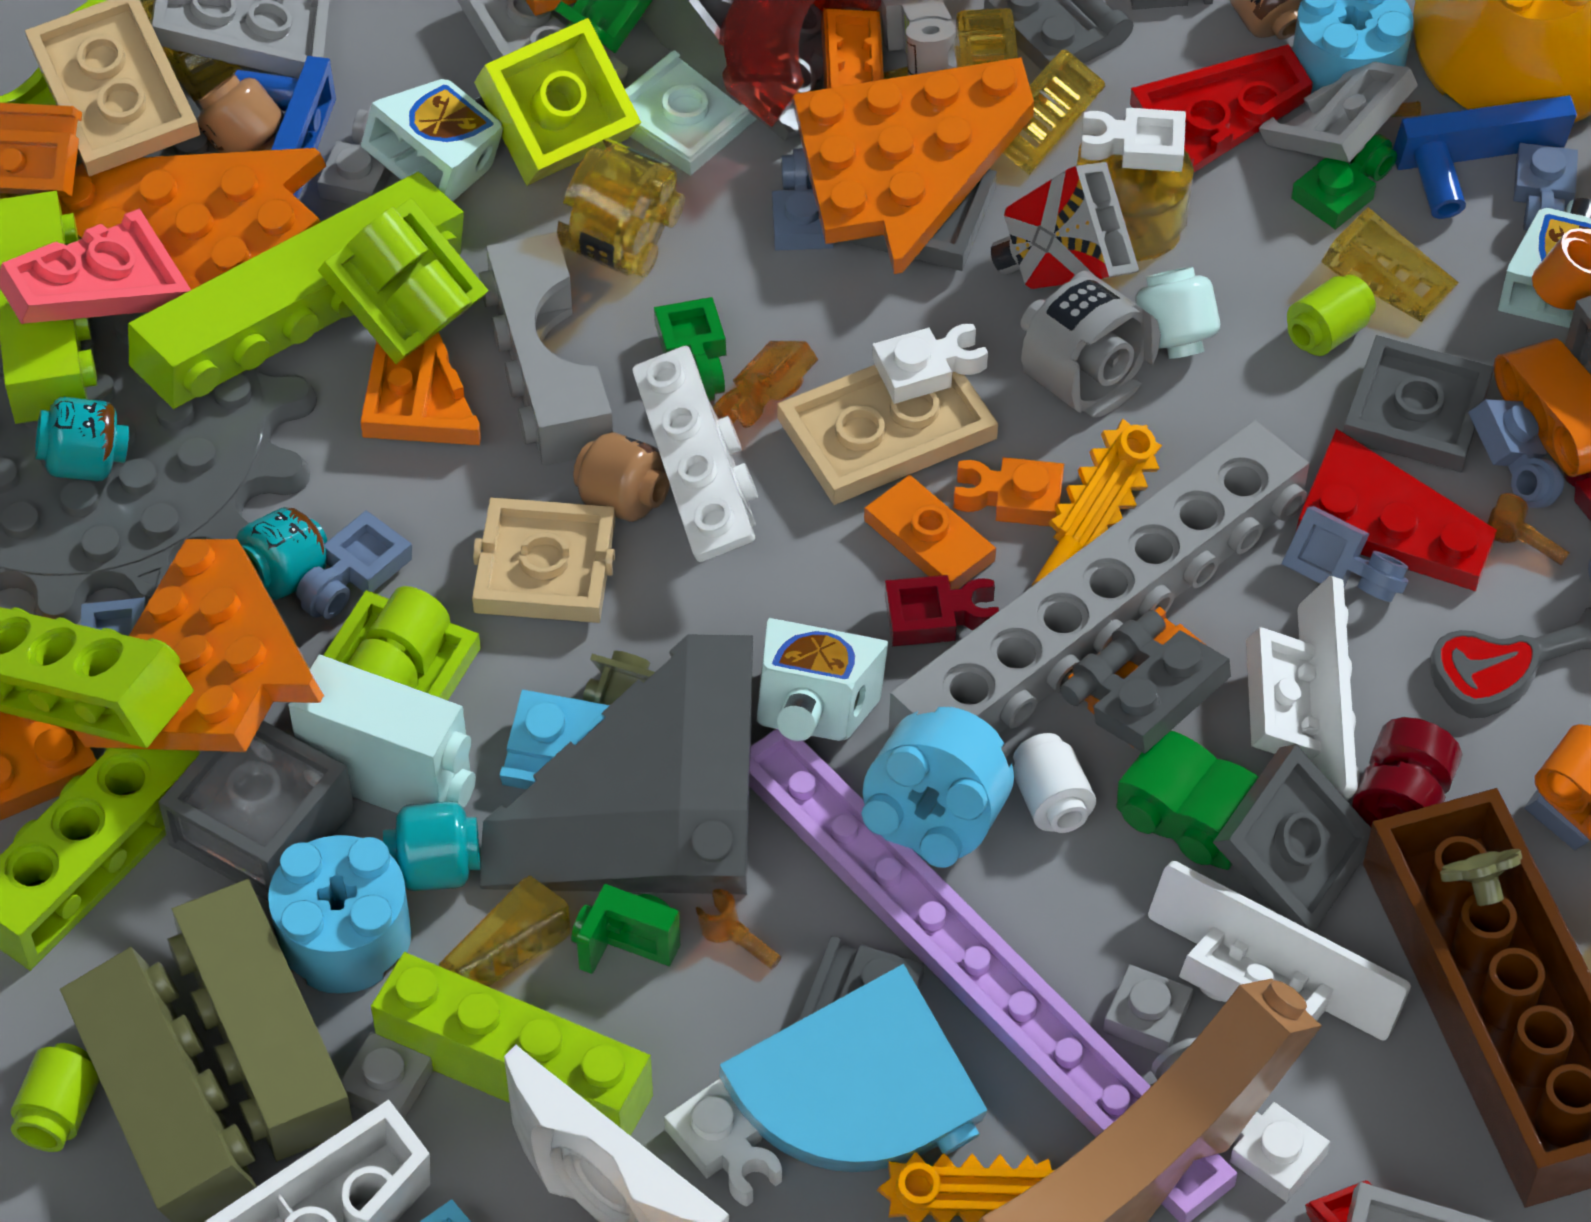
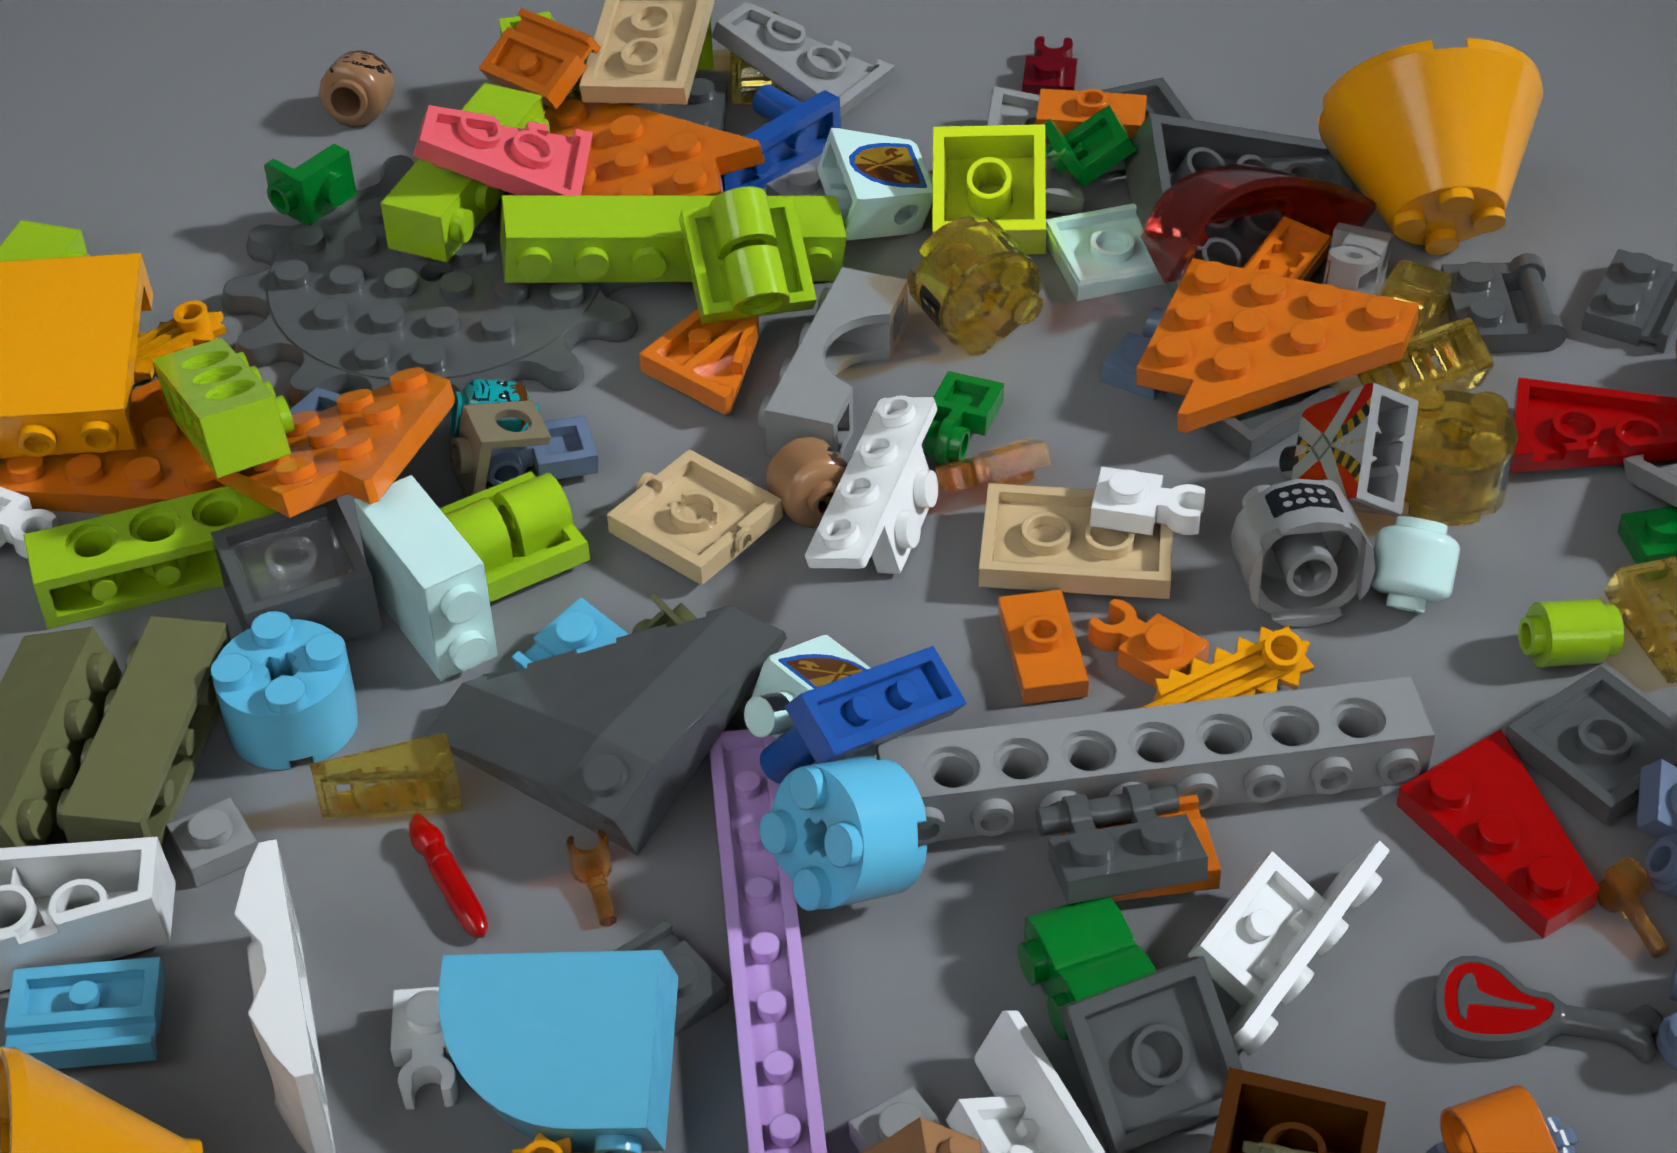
camera: 35 degrees right, 10 degrees down
(80, 439) = (409, 268): teal head -> none
(239, 116) = (739, 106): medium nougat head -> none
(305, 586) = (480, 434): none -> dark tan bracket
(434, 845) = (403, 679): teal head -> none
(473, 1028) = (326, 875): lime brick -> none
(610, 995) = (462, 900): none -> red piece
(629, 922) = (495, 810): green bracket -> none
(875, 681) = (863, 712): none -> blue piece
(929, 611) = (995, 698): dark red plate -> none
(1053, 783) = (973, 895): white brick -> none
(1145, 138) = (1467, 399): white plate -> none
(1332, 548) = (1410, 827): sand blue plate -> none
(1407, 769) = (1330, 1048): dark red wheel -> none

